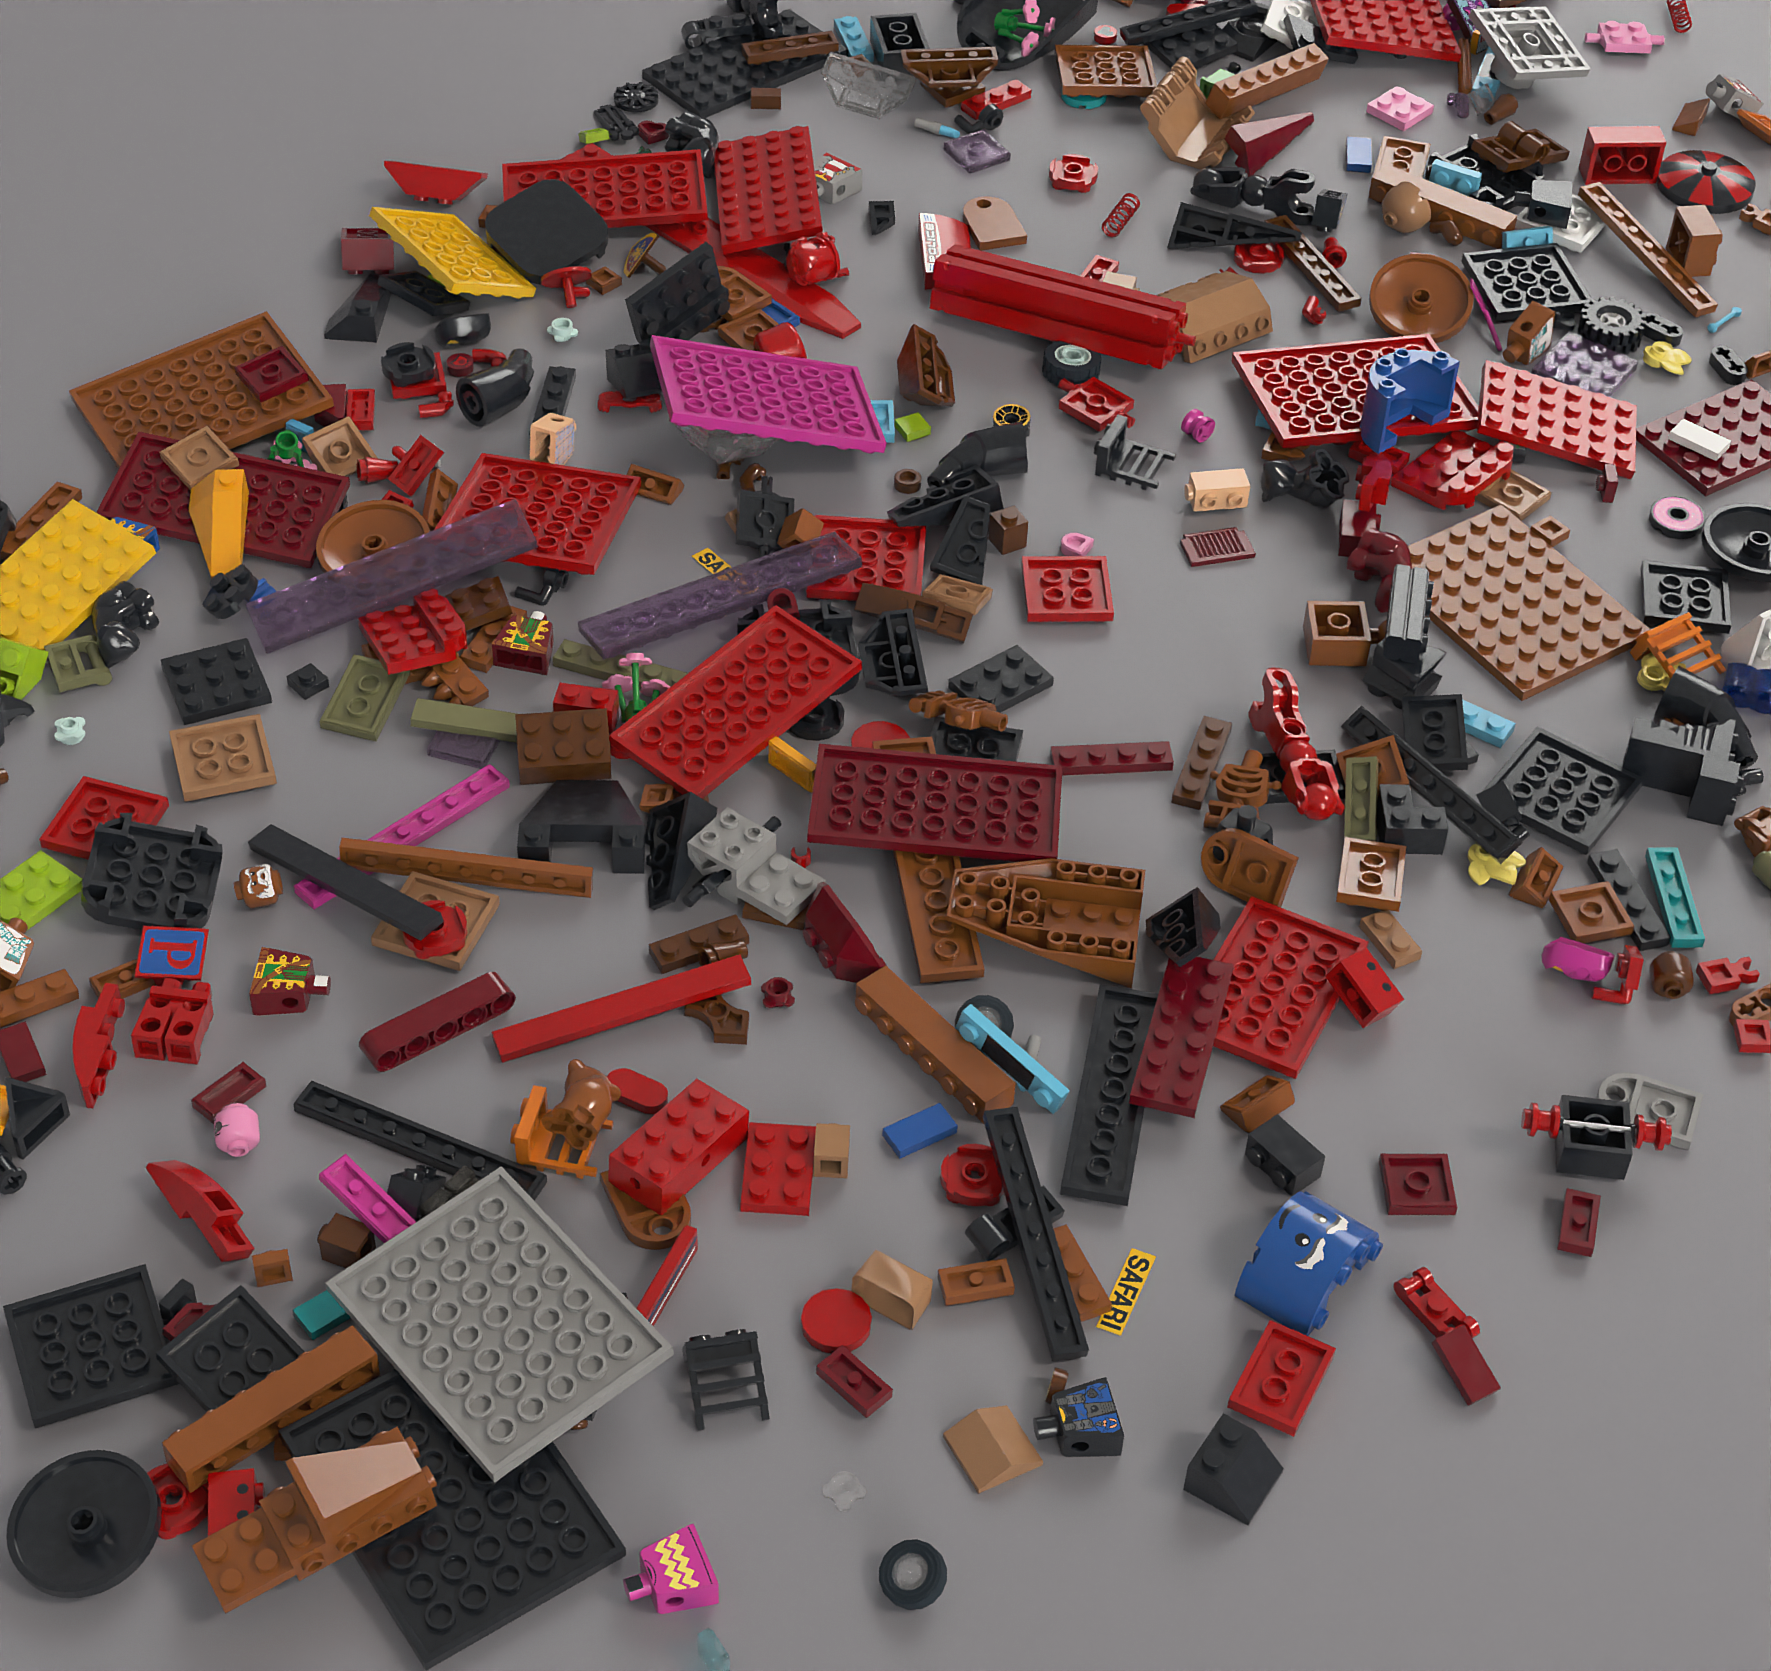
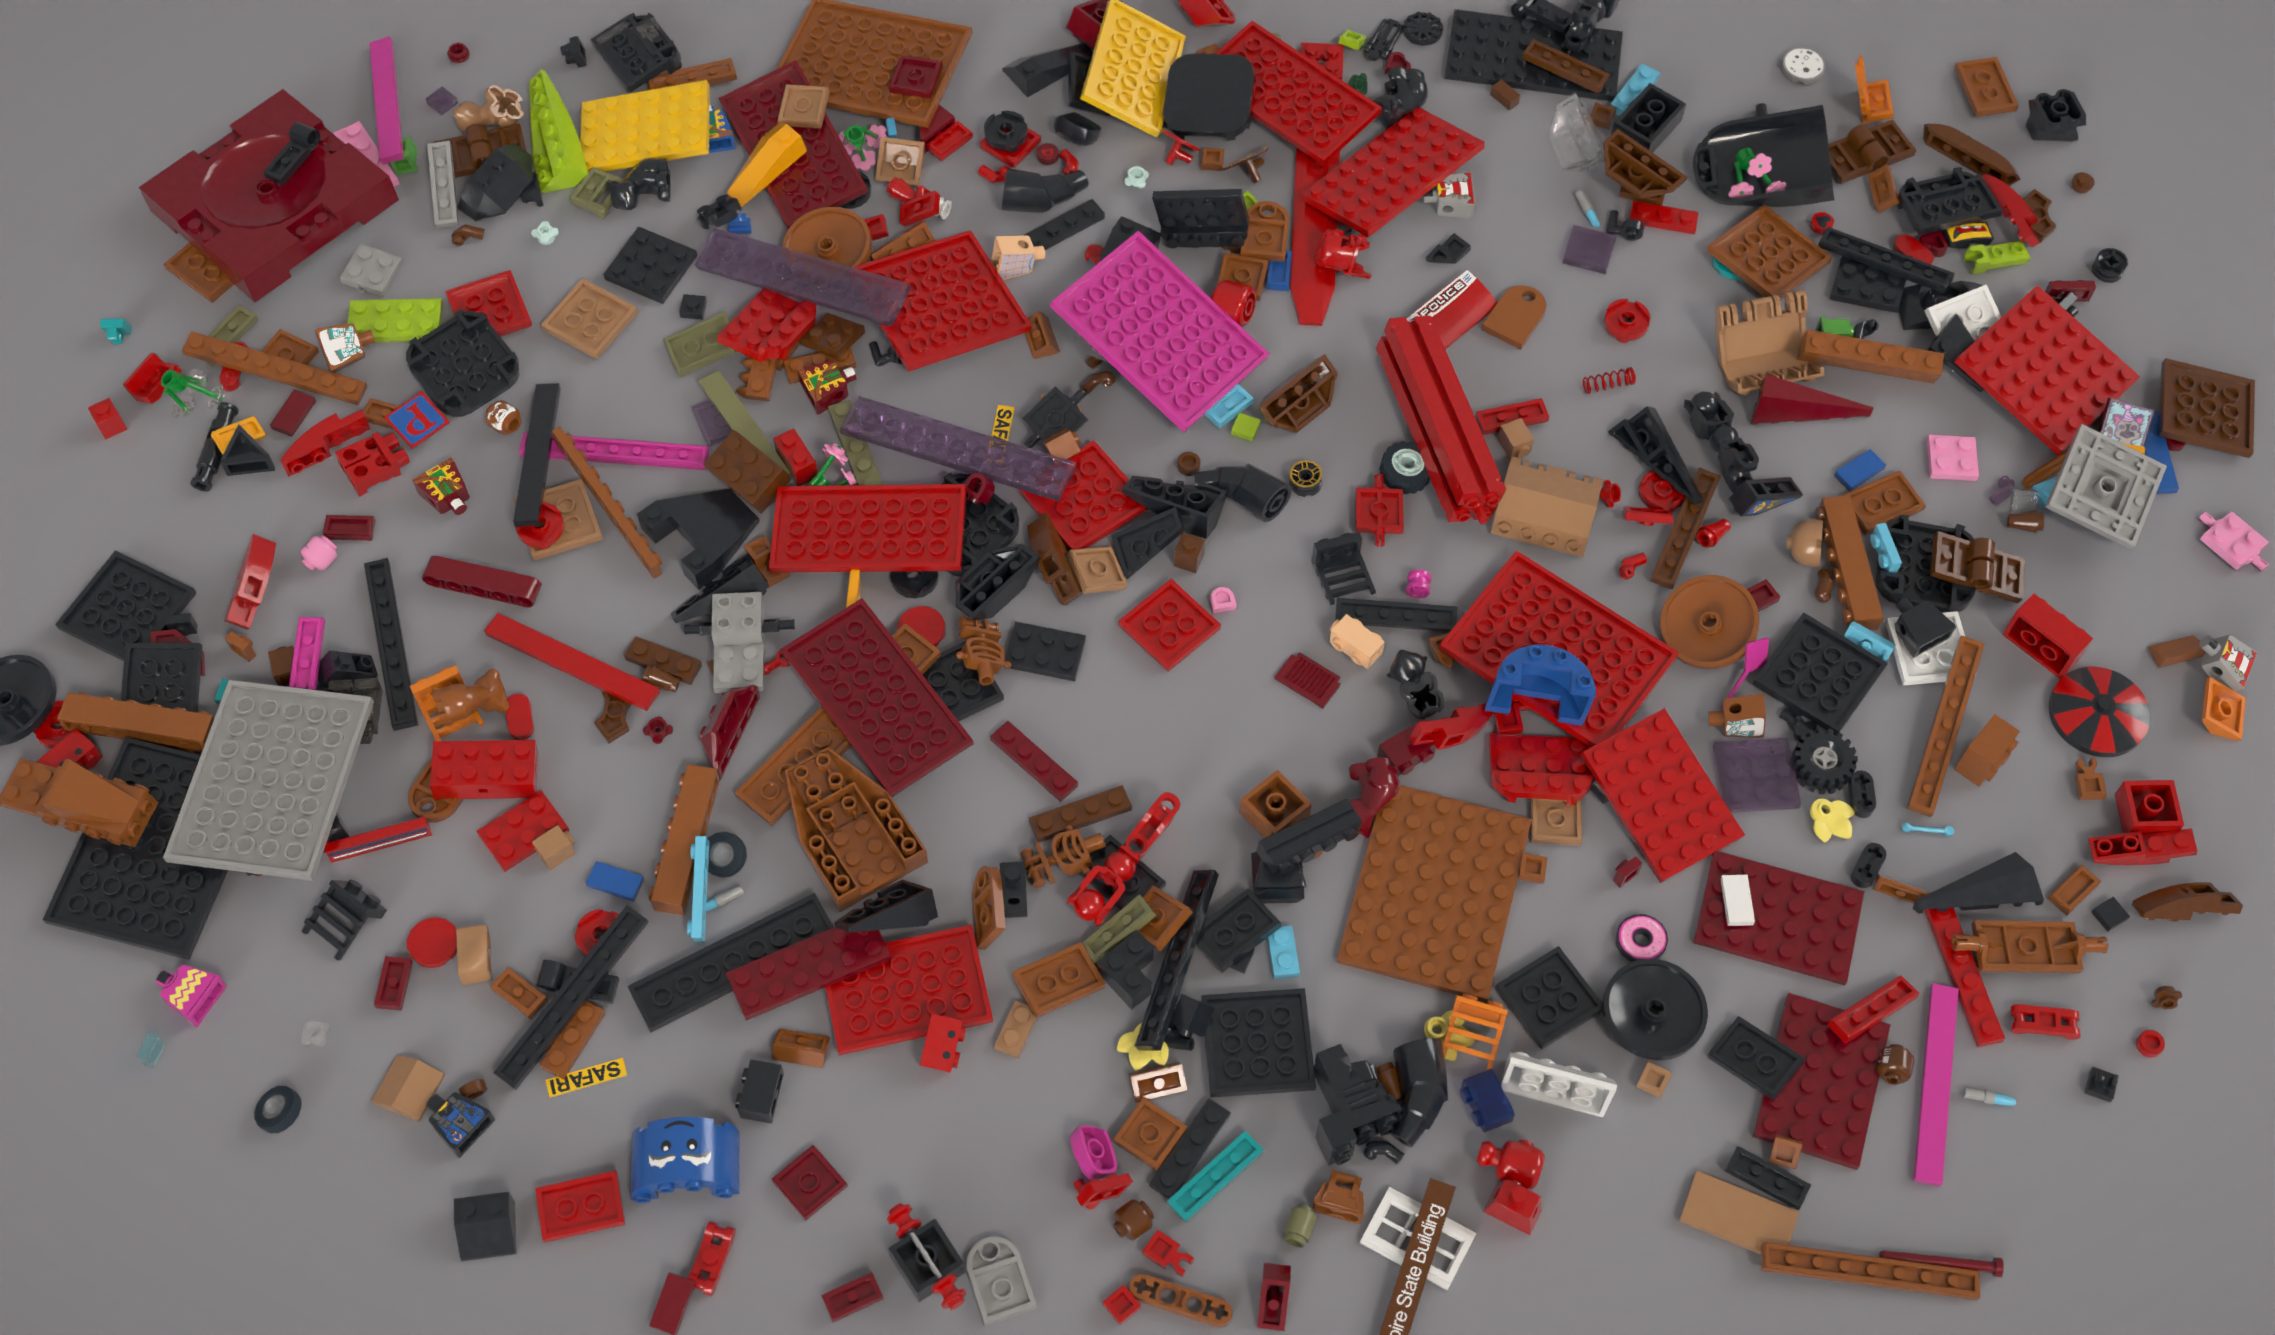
camera: 50 degrees right, 15 degrees up
(1215, 454) = (1398, 614): none -> black plate
(1279, 272) = (1647, 516): none -> red plate

